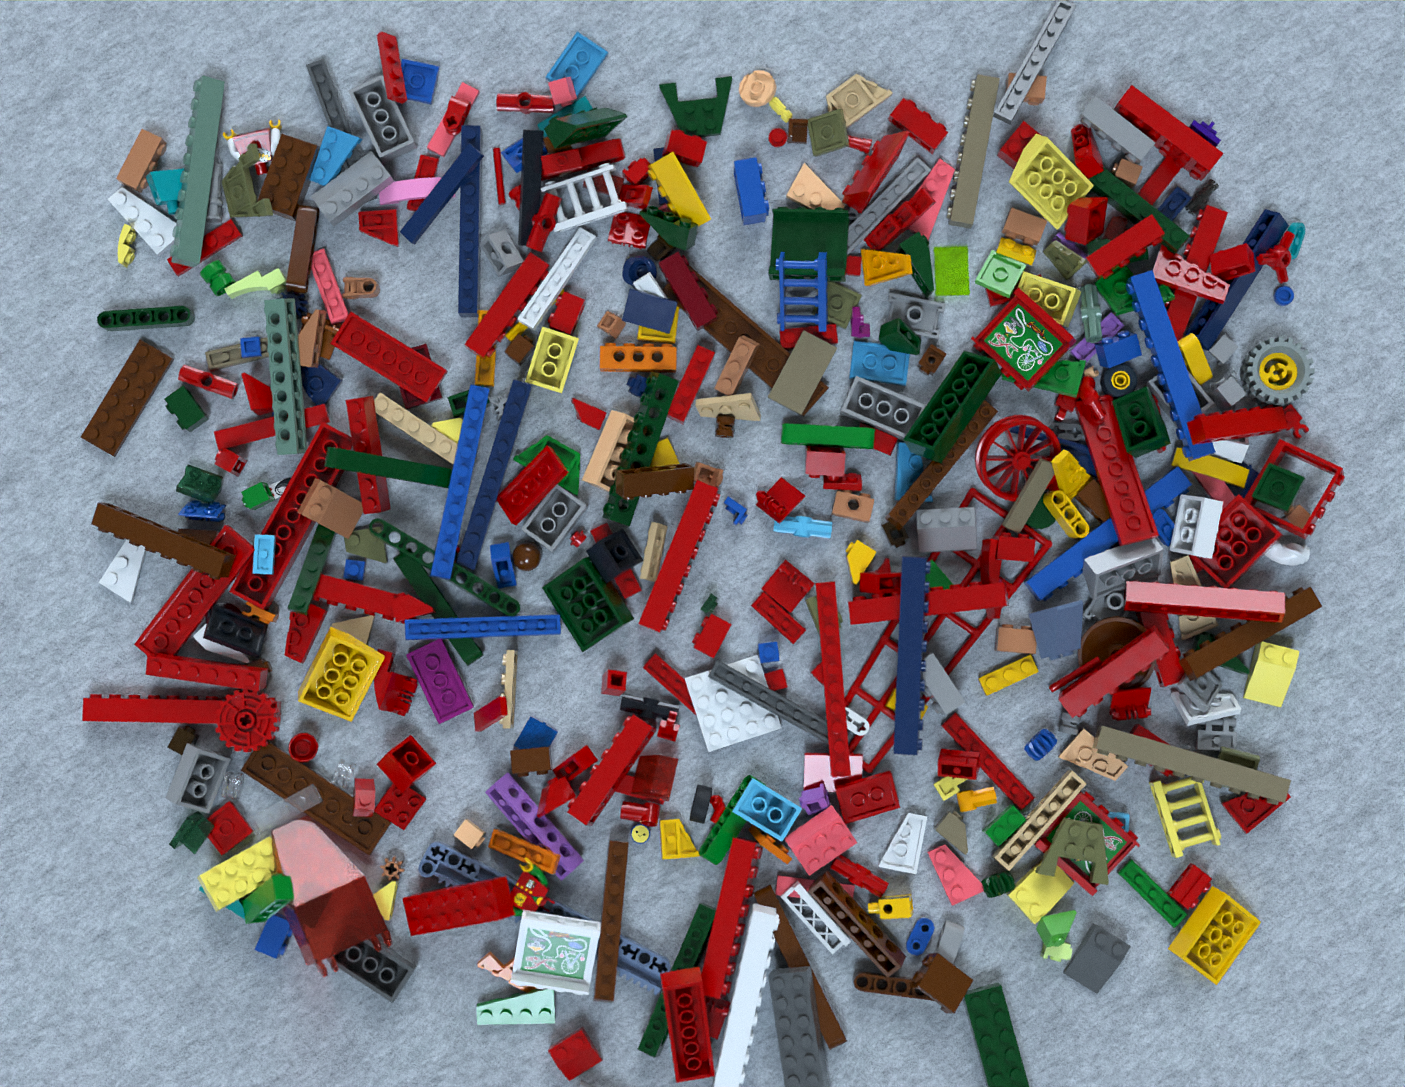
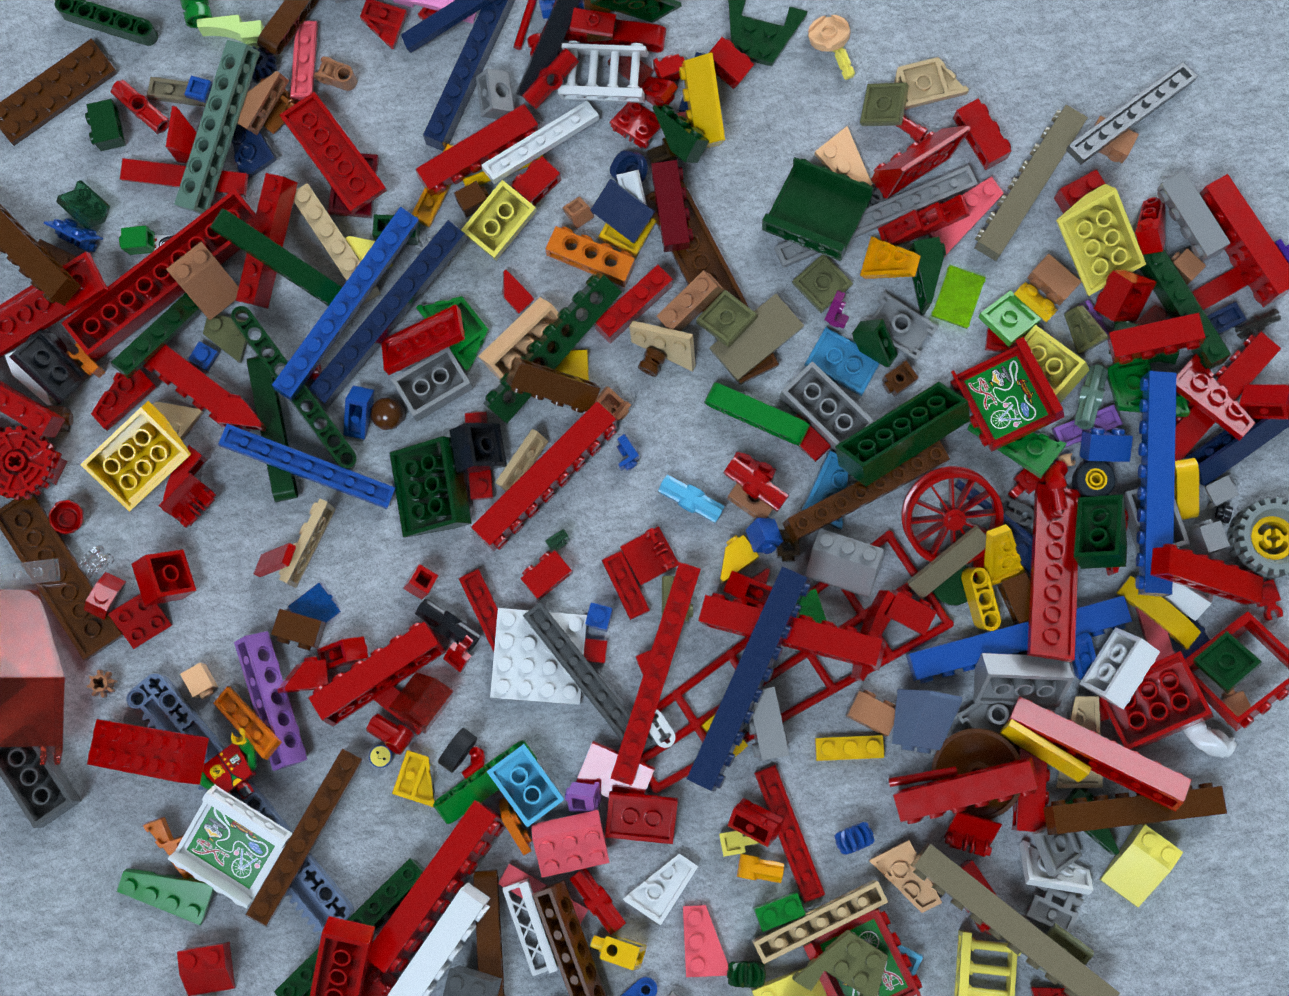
camera: 25 degrees right, 5 degrees down
(230, 461) = (125, 195): red slope -> none
(264, 554) = (112, 298): medium azure plate -> none
(386, 898) = (79, 714): light yellow slope -> none
(440, 681) = (240, 506): magenta plate -> none
(577, 538) = (448, 415): red plate -> none
(637, 385) = (577, 281): dark blue gear -> none
(750, 191) = (779, 130): blue brick -> none
(772, 367) = (726, 318): none -> olive tile
(777, 137) = (829, 90): red plate -> none
(779, 500) = (677, 460): red hinge -> none
(790, 336) = (798, 306): red plate -> none
(797, 131) = (853, 91): reddish brown panel -> none
(819, 283) = (812, 248): blue fence -> none
(824, 461) = (742, 439): slope -> none
(851, 495) = (755, 484): none -> red piece
(853, 265) = (856, 250): red tile -> none
(874, 533) = (764, 535): none -> blue brick
(953, 830) = (720, 894): dark tan slope -> none
(1069, 724) = (895, 829): light grey wheel -> none
(1163, 615) = (1045, 750): none -> yellow tile
(1232, 366) = (1224, 513): none -> black plate

